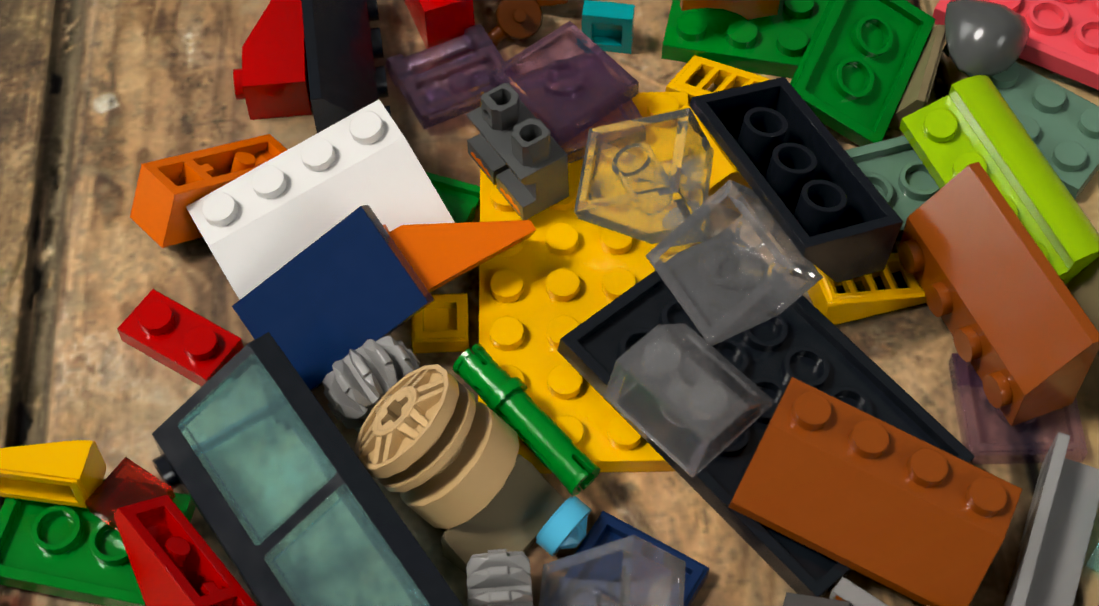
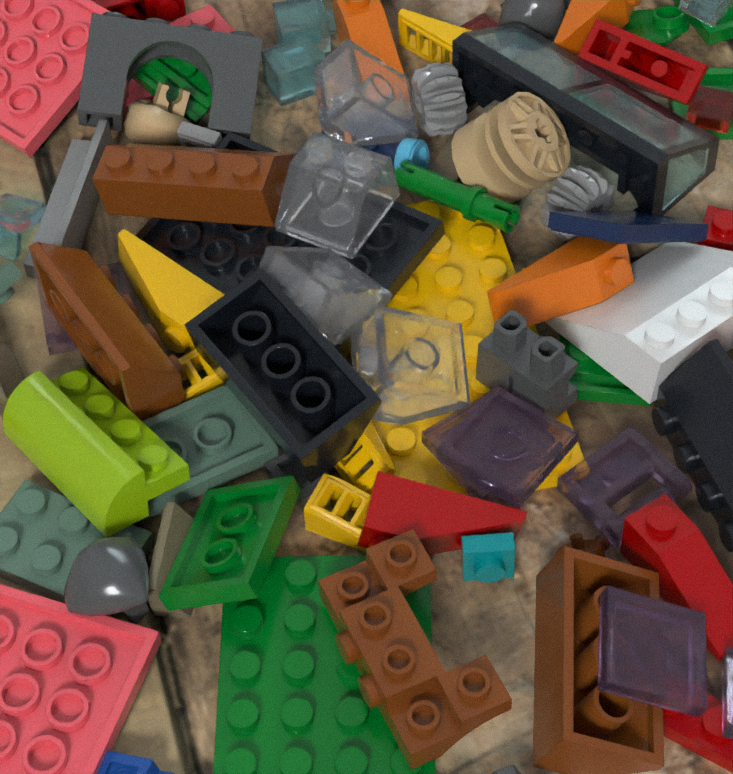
camera: 170 degrees right, 5 degrees down
(667, 49) = (433, 513): none -> red slope
(912, 352) = (165, 289): none -> yellow slope

